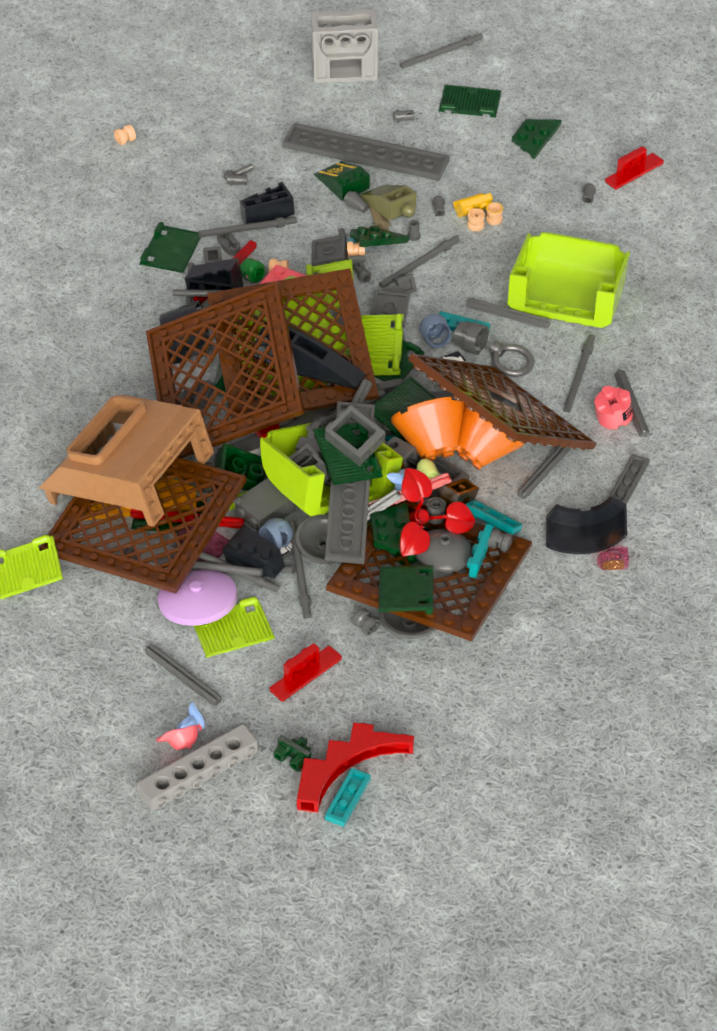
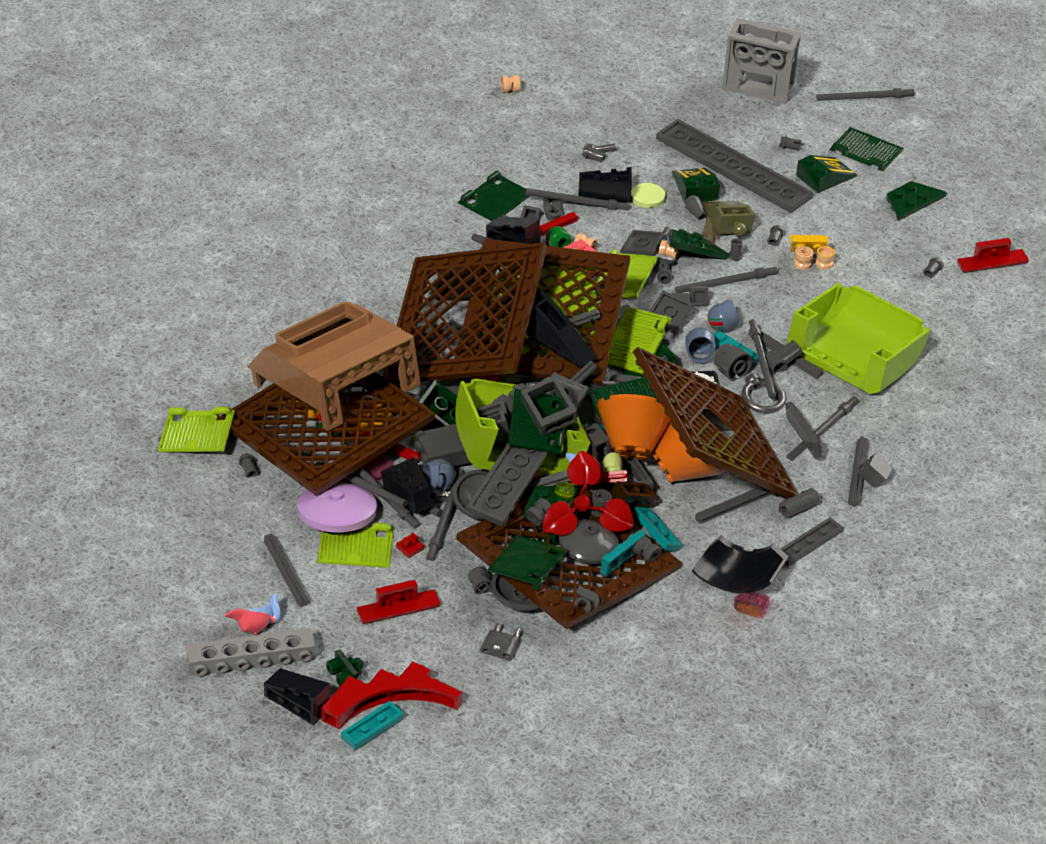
camera: 20 degrees right, 5 degrees down
(90, 584) = (246, 461): none -> dark grey pin
(266, 792) = (298, 694): none -> black wedge
(283, 610) = (410, 545): none -> red tile
(307, 203) = (647, 195): none -> yellowish green tile
(337, 339) = (585, 318): none -> dark grey axle
(391, 540) = (537, 513): none -> dark grey wheel
(399, 509) = (564, 489): none -> clear neon green tile
(417, 675) = (500, 643): none -> dark grey piece
(439, 297) = (723, 316): none -> sand blue helmet
(447, 134) = (823, 172): none -> dark green slope
(477, 305) = (756, 335): none -> dark grey bar
(480, 605) = (588, 597): none -> dark grey tile
(509, 321) = (779, 359): none -> dark grey piece
(567, 380) = (803, 429): none -> dark grey tile
(600, 450) = (799, 503): none -> dark grey axle
(613, 407) = (833, 468): coral brick -> none
(648, 397) = (874, 469): none -> dark grey brick

